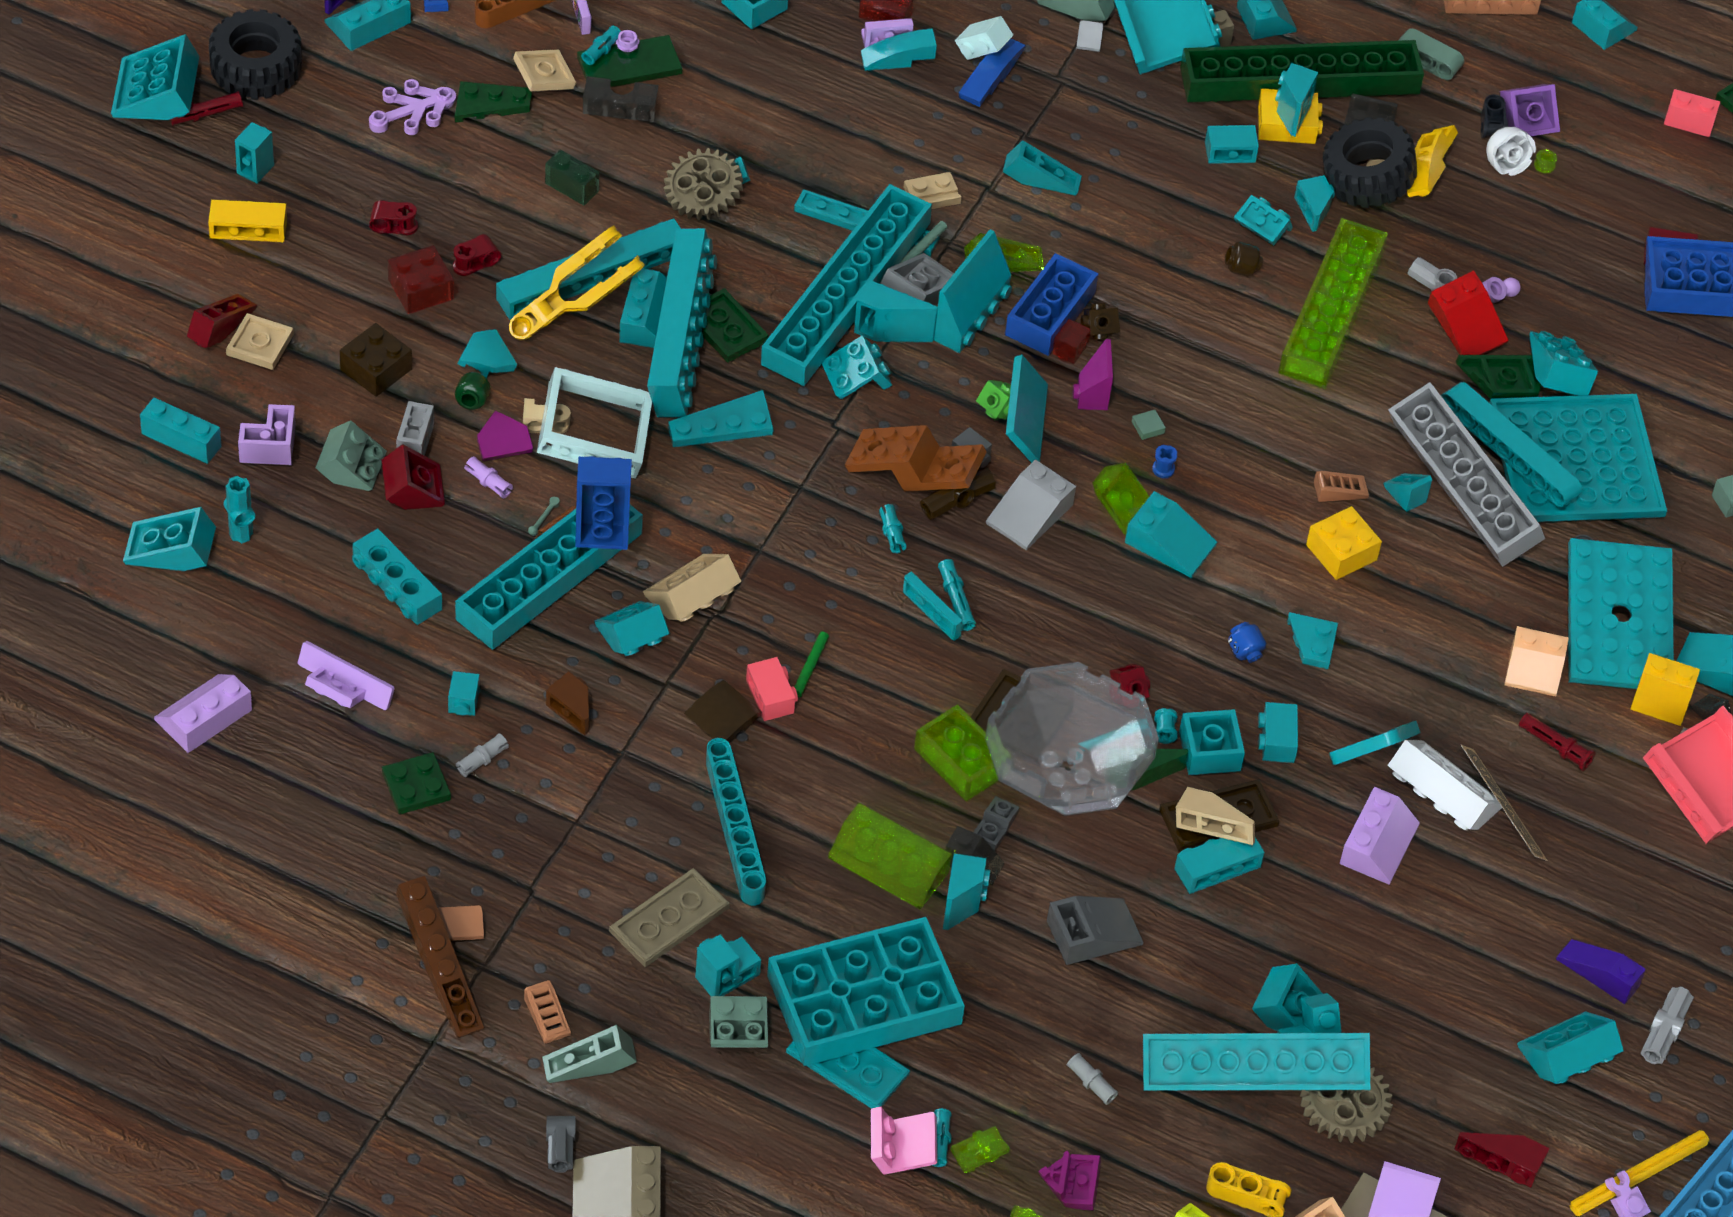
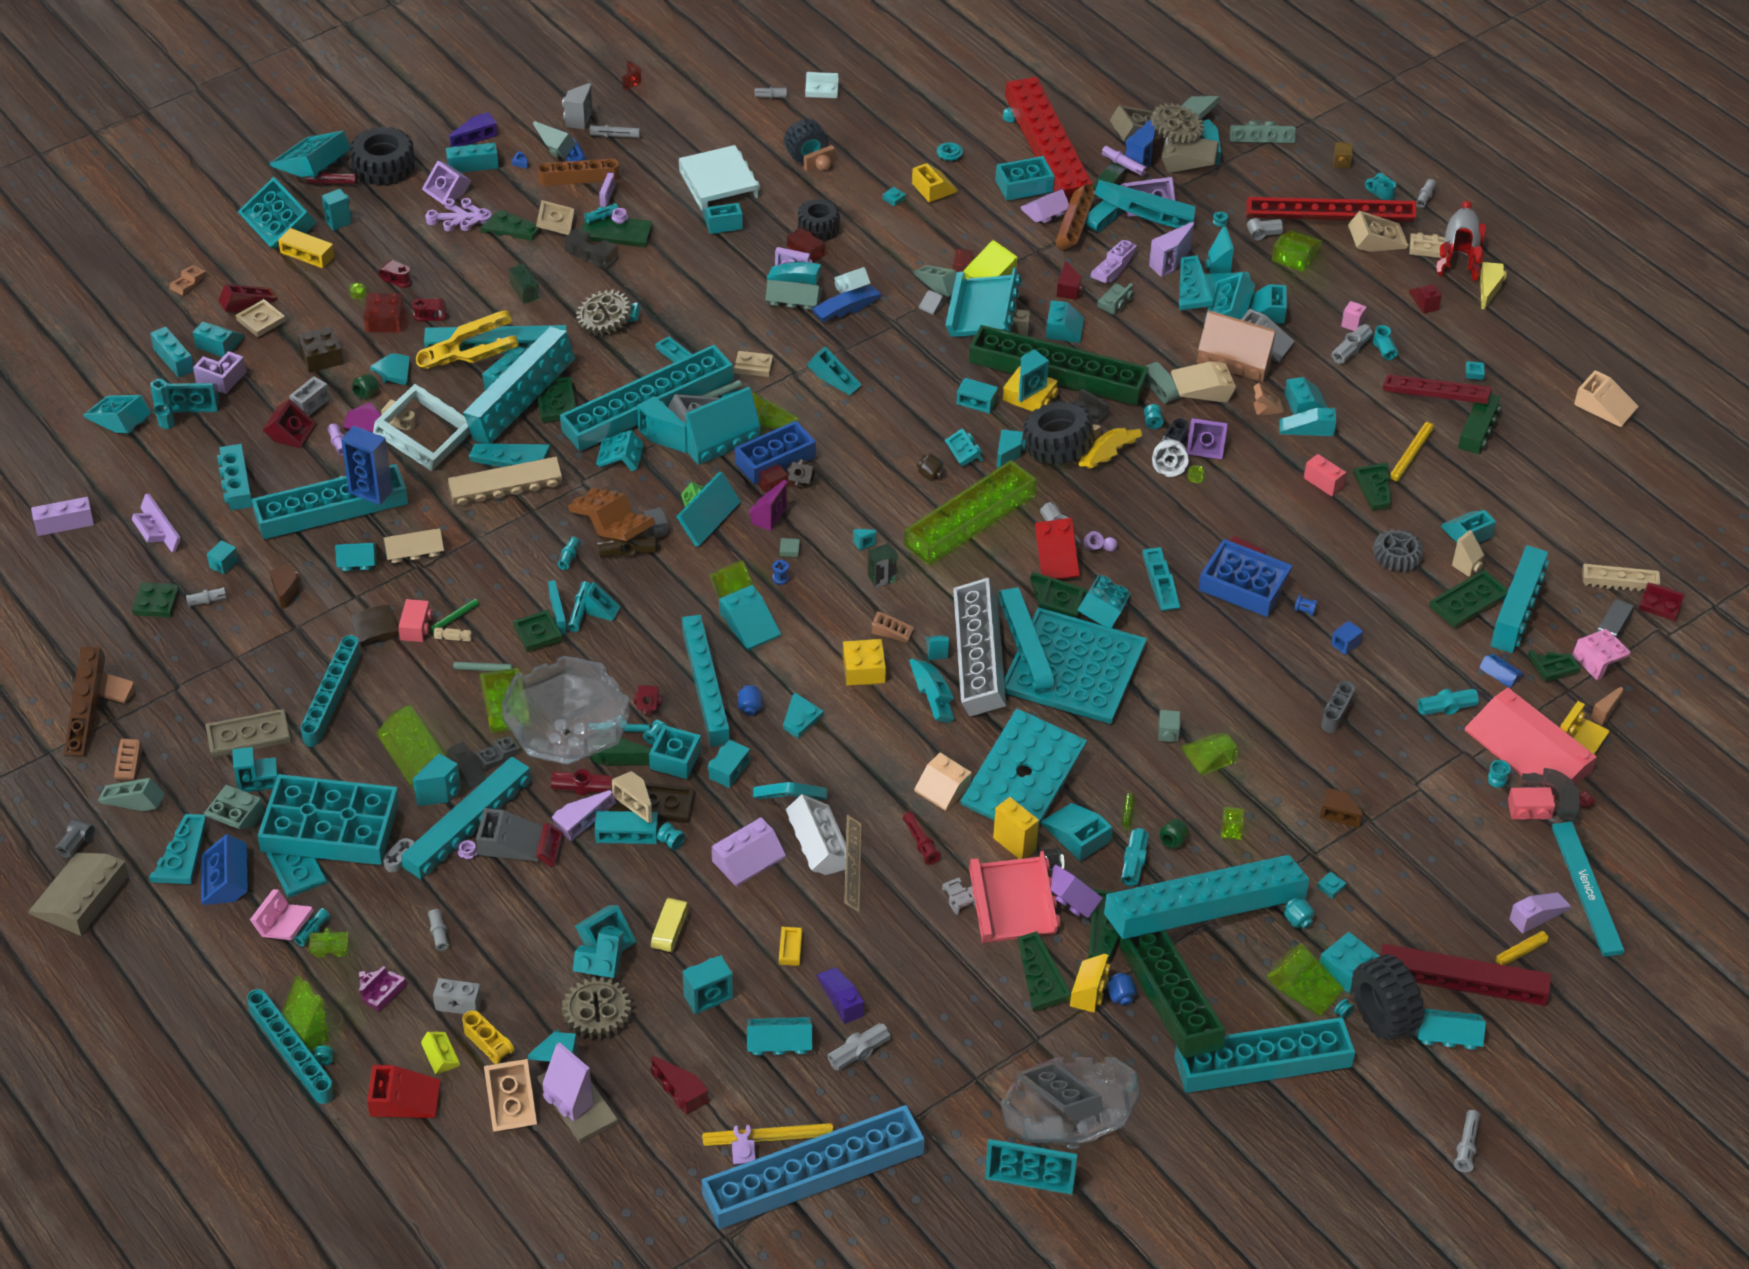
camera: 30 degrees right, 5 degrees down
(117, 319) = (189, 279): none -> nougat slope
(171, 184) = (274, 212): none -> teal slope
(224, 392) = (216, 339): none -> teal slope
(267, 482) = (194, 397): none -> teal slope
(351, 457) = (260, 400): sand green slope -> none
(357, 259) = (357, 290): none -> clear neon green tile
(364, 68) = (445, 183): none -> lavender slope
(710, 1110) = (182, 853): none -> teal wing
(747, 460) = (504, 481): none -> tan brick
(781, 1110) = (224, 871): none -> blue slope
(827, 689) = (452, 634): none -> tan axle
(894, 718) = (480, 666): none -> sand green bar
(919, 80) = (793, 294): none -> sand green slope
(929, 646) = (537, 630): none -> dark green plate
(979, 1003) = (395, 854): none -> light grey beam
(981, 582) = (600, 603): none -> teal slope
(1023, 922) = (465, 818): none -> teal brick
(1032, 505) = (671, 569): light grey slope -> none
(1052, 957) = (467, 846): none -> lavender plate
(1116, 825) = (581, 782): none -> dark red piece
(1145, 918) = (549, 844): none -> dark red plate
(1155, 866) = (581, 814): none -> lavender slope
(1177, 635) = (705, 680): none -> teal brick
(1179, 1153) = (457, 996): none -> light grey brick
(1230, 381) = (864, 538): none -> teal slope
(1257, 1061) = (546, 957): teal plate -> none
(1271, 851) = (672, 837): none -> teal wheel
(1283, 410) = (882, 565): none -> clear green brick
(1343, 1170) = (546, 1048): none -> teal slope
(1355, 963) = (669, 925): none -> light yellow beam
(1440, 540) = (937, 690): none -> teal slope
(1453, 104) = (1153, 416): none -> teal wheel
(1457, 1019) = (707, 984): none -> teal brick
(1484, 36) = (1205, 381): none -> tan slope
(1503, 933) = (790, 946): none -> yellow tile
(1563, 40) = (1266, 401): none -> nougat slope
(1596, 311) = (1160, 579): none -> teal slope
(1632, 49) = (1311, 422): none -> teal slope
(1647, 796) = (957, 896): none -> light grey piece

